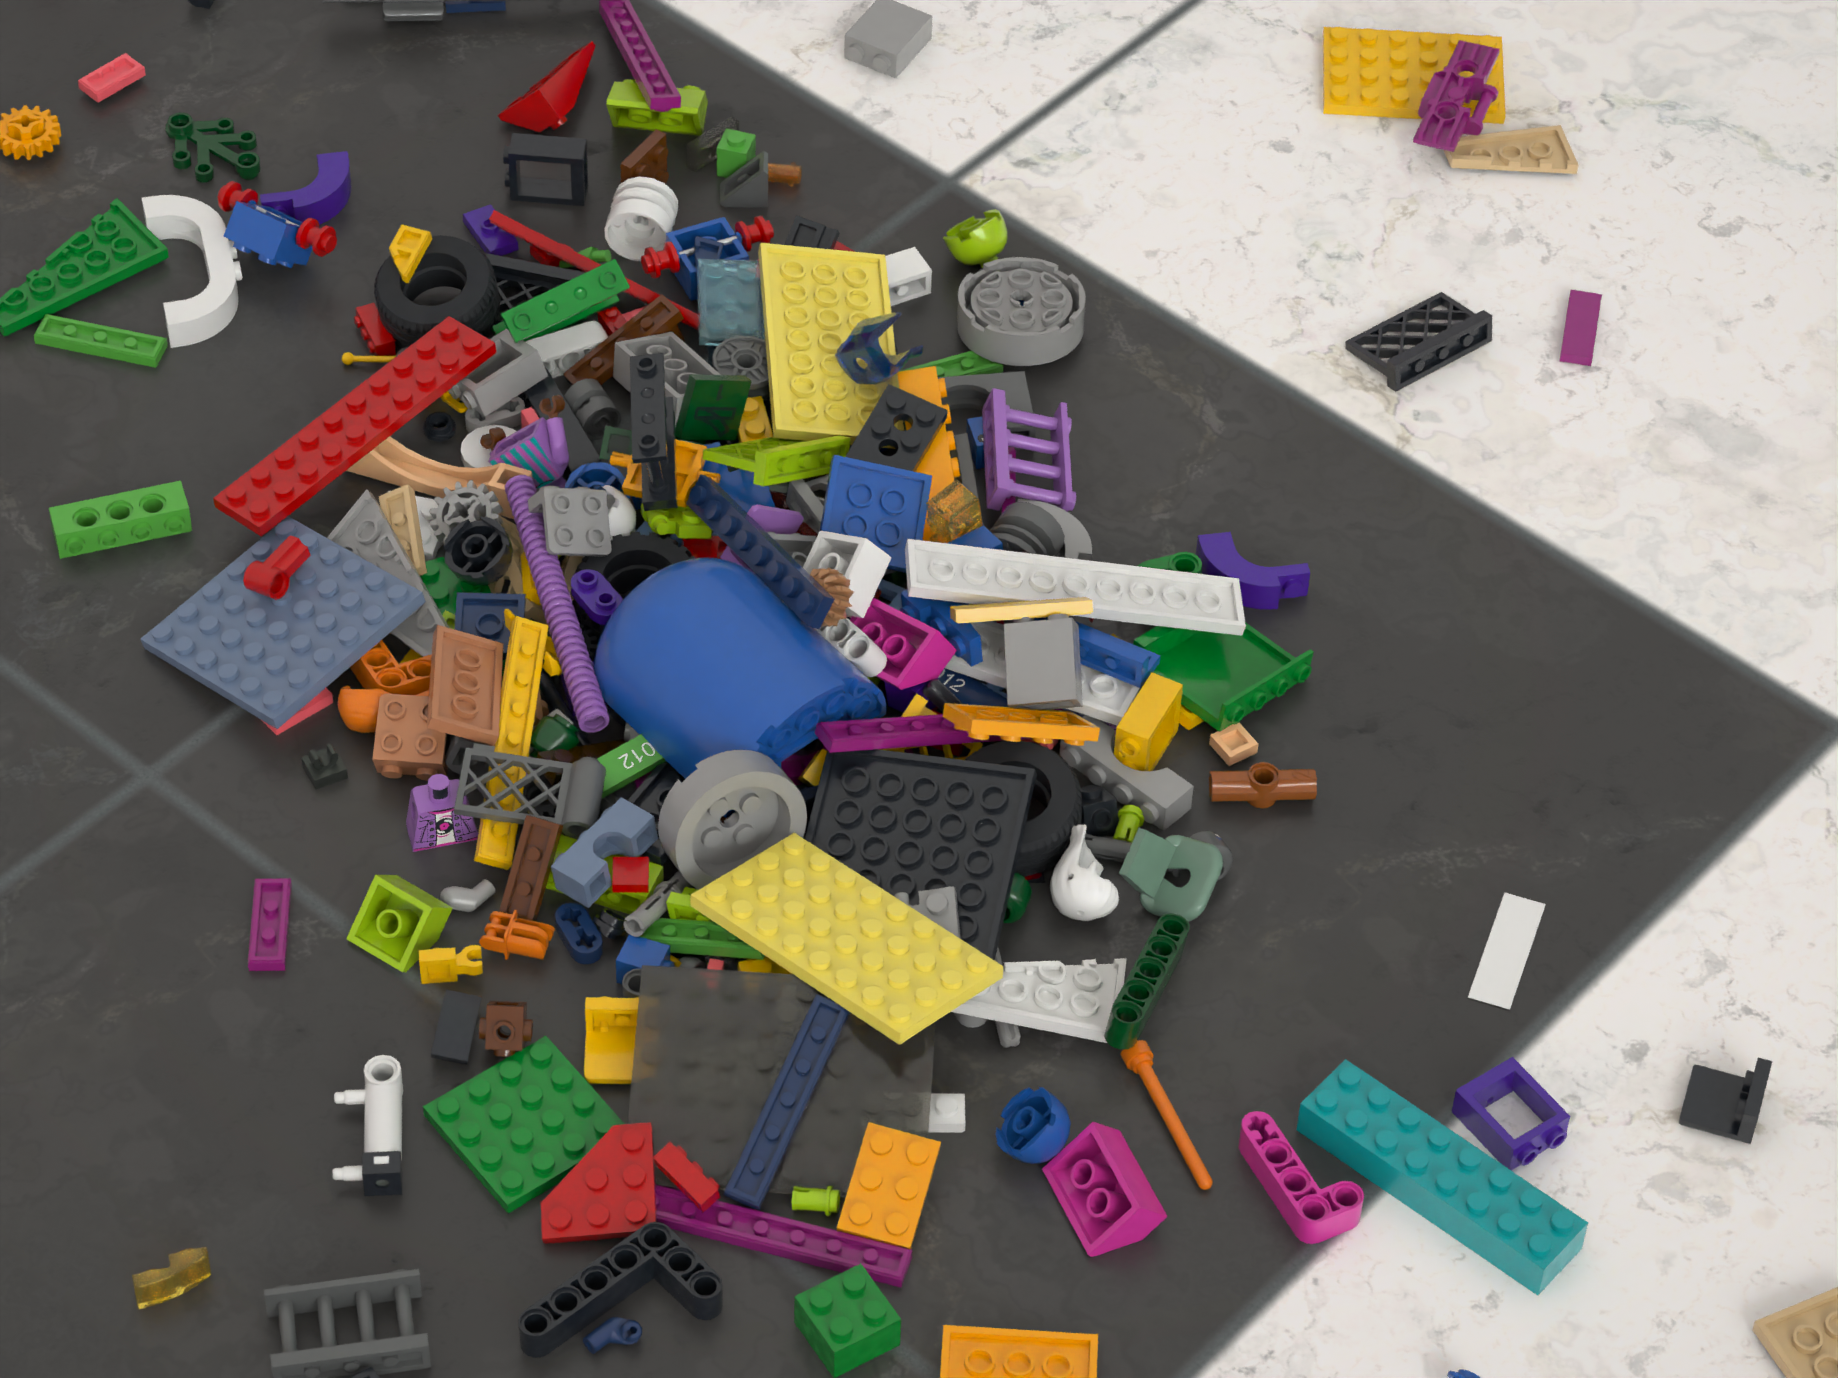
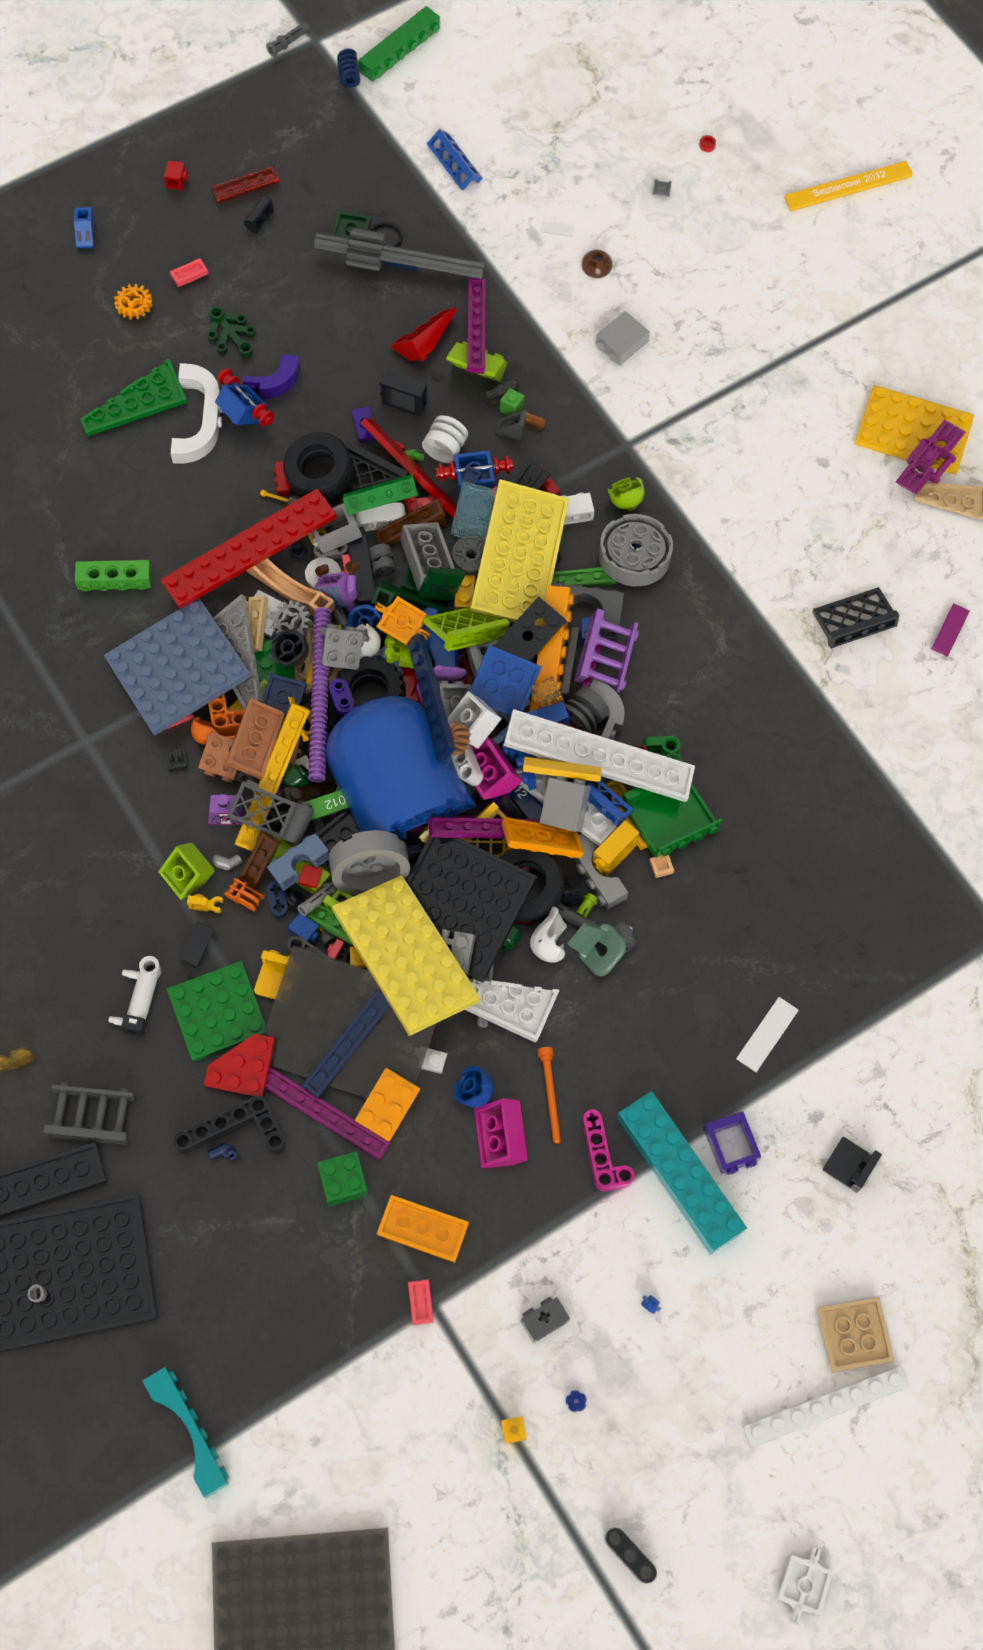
camera: 15 degrees right, 20 degrees up
(100, 340) = (136, 450): bright green tile -> none
(269, 924) = (121, 853): magenta tile -> none
(273, 575) = (175, 640): red piece -> none
(408, 249) = (306, 440): yellow tile -> none
(511, 1015) = (220, 952): reddish brown brick -> none
(648, 159) = (458, 404): reddish brown plate -> none
(653, 432) = (396, 604): black fence -> none
(687, 1176) = (285, 1071): red piece -> none
(816, 1199) = (350, 1098): lime pin -> none
(864, 344) = (530, 571): piece -> none
(1146, 981) = (559, 1019): dark green beam -> none
(1259, 585) = (704, 762): dark purple arch -> none
(1262, 785) = (680, 901): dark orange piece -> none

